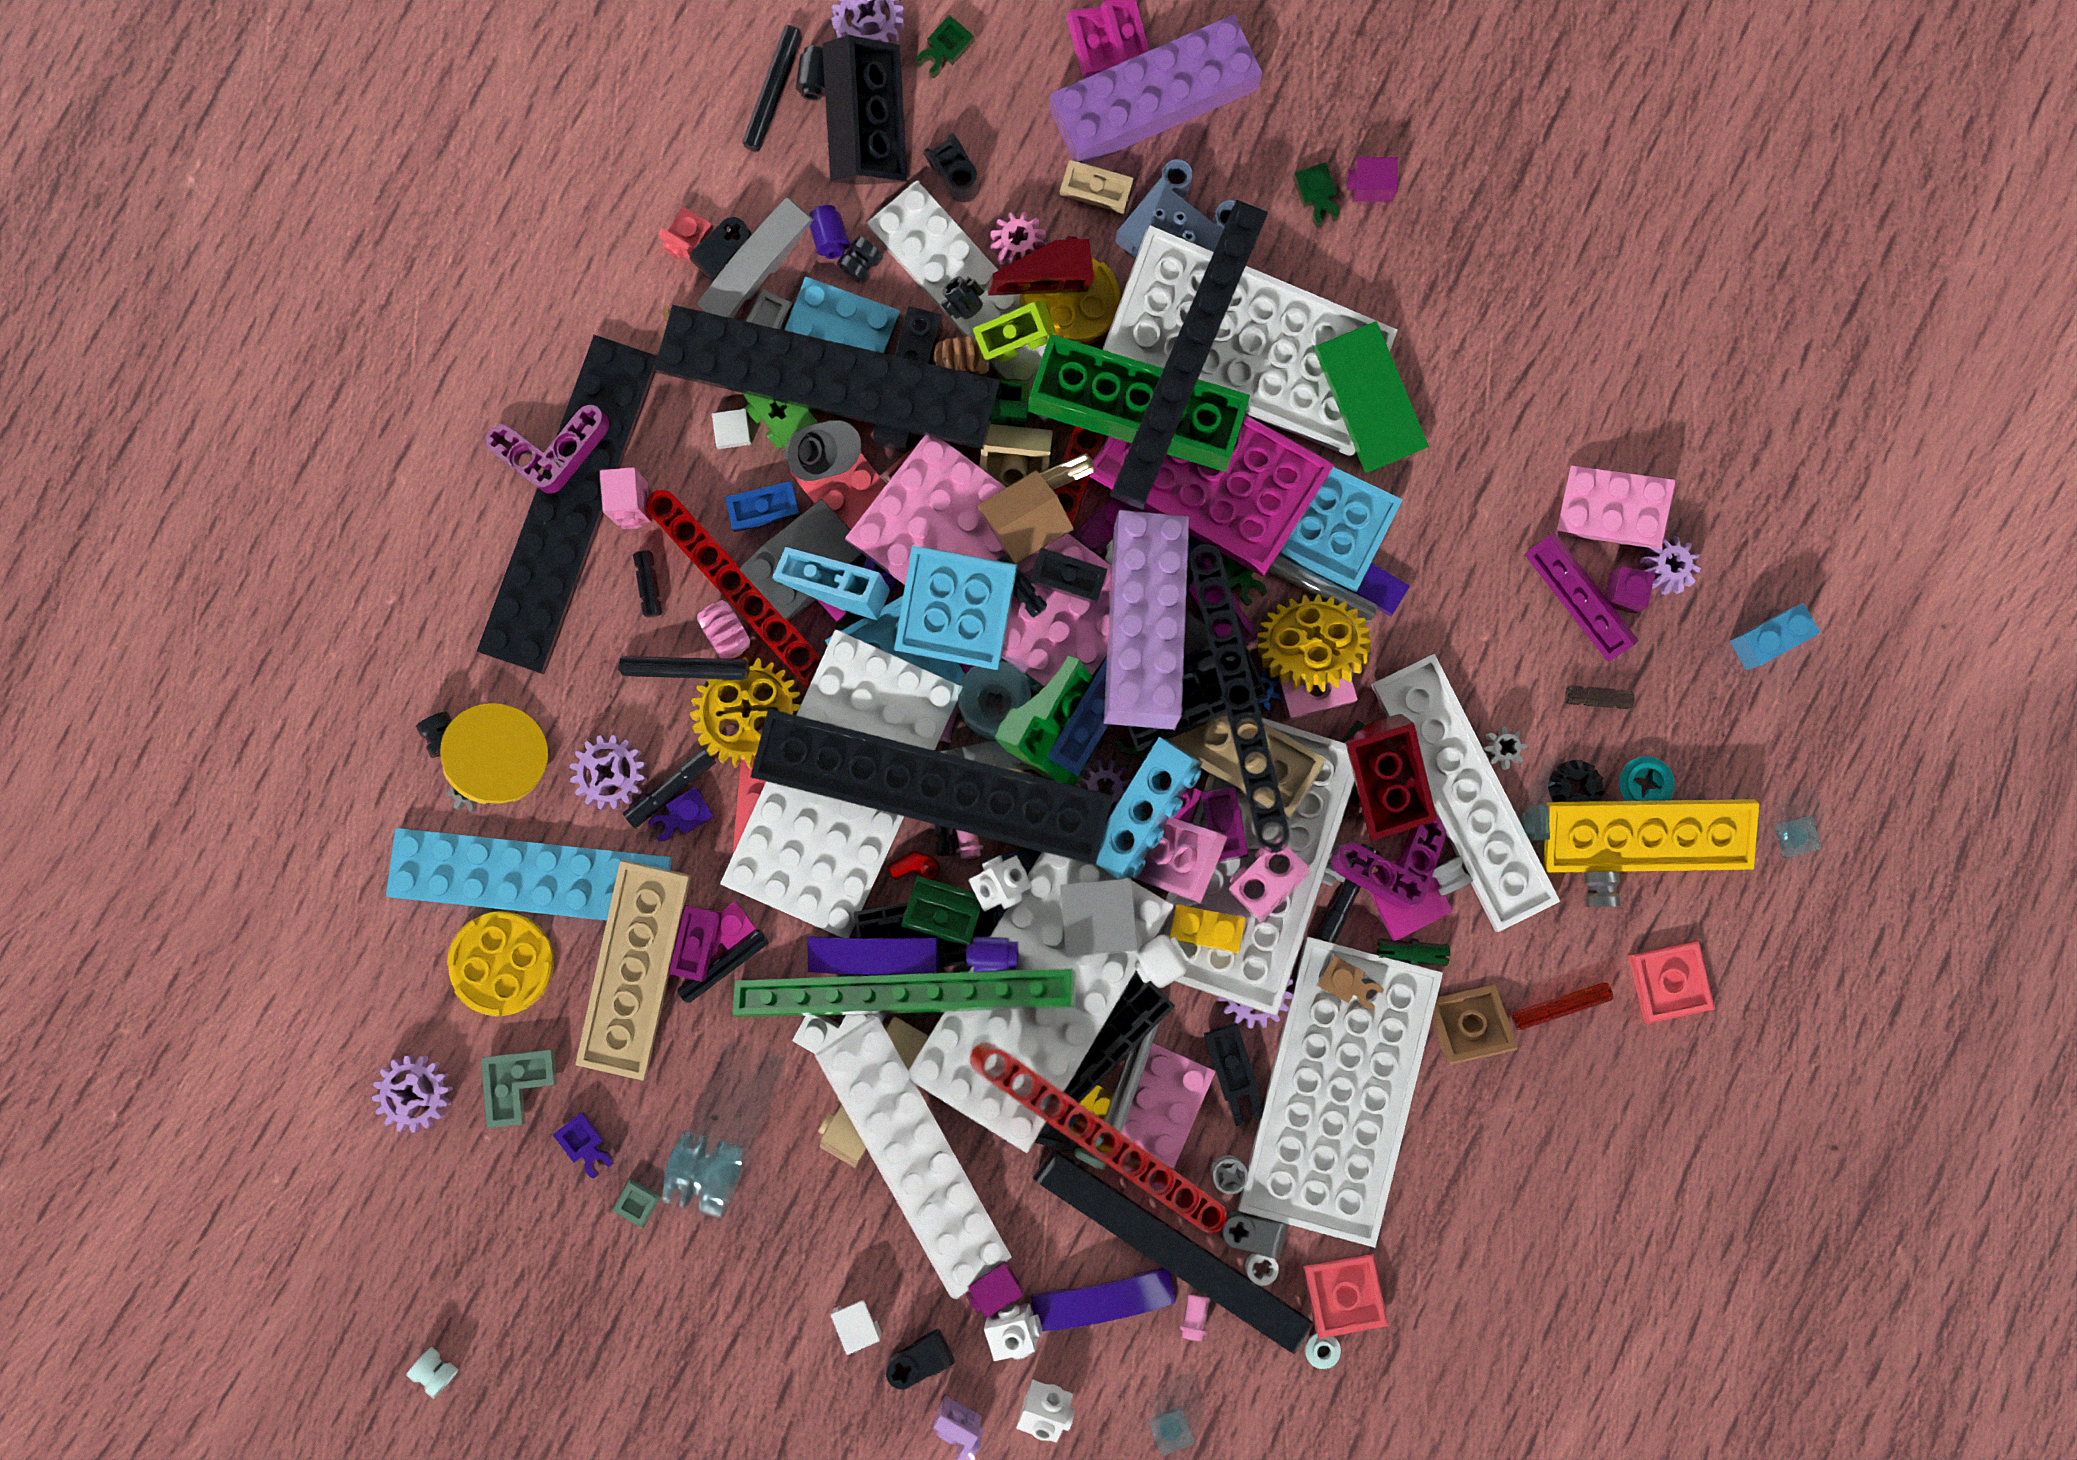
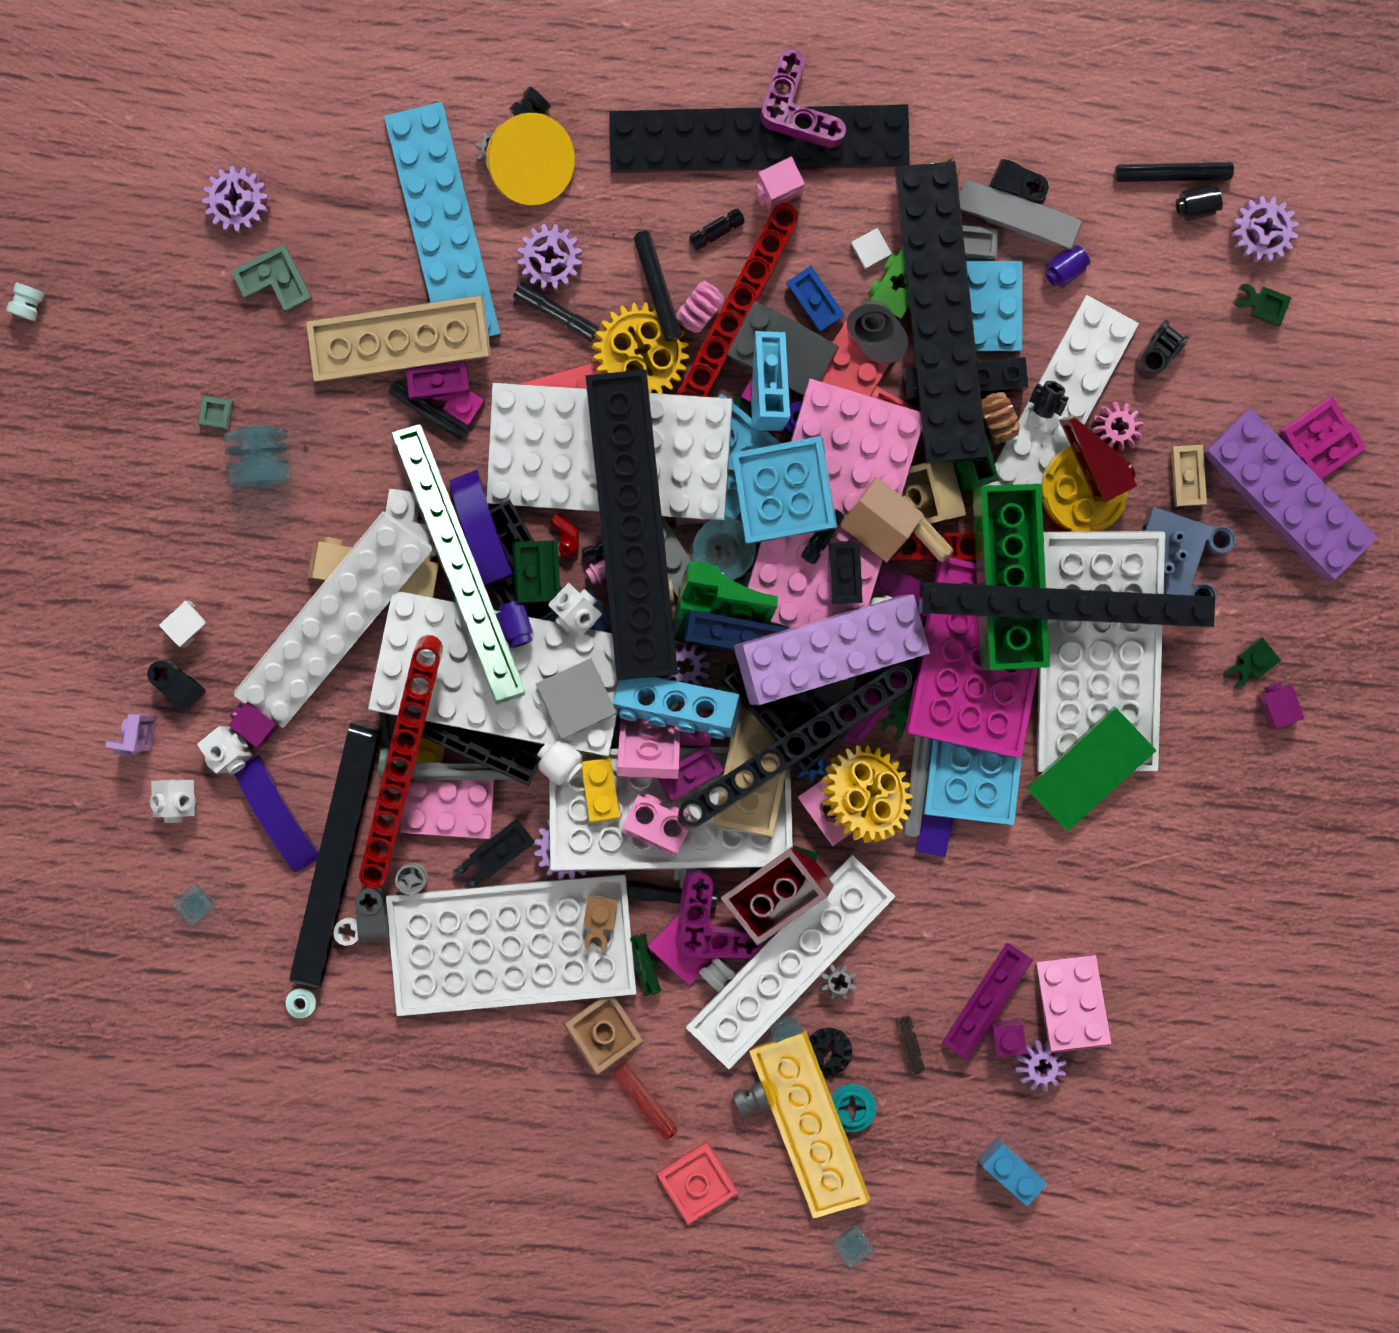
camera: 75 degrees right, 5 degrees up
(500, 963) = (365, 229): yellow tile -> none
(580, 1139) = (249, 349): dark purple plate -> none
(685, 234) = (1021, 147): coral bracket -> none
(685, 812) = (540, 333): dark purple plate -> none
(860, 260) = (1046, 299): black wheel -> none
(864, 111) = (1180, 258): black slope -> none
(1014, 330) = (1037, 455): lime brick -> none
(1195, 1317) = (289, 892): bright pink pin -> none
(1345, 1296) = (350, 1006): coral tile -> none

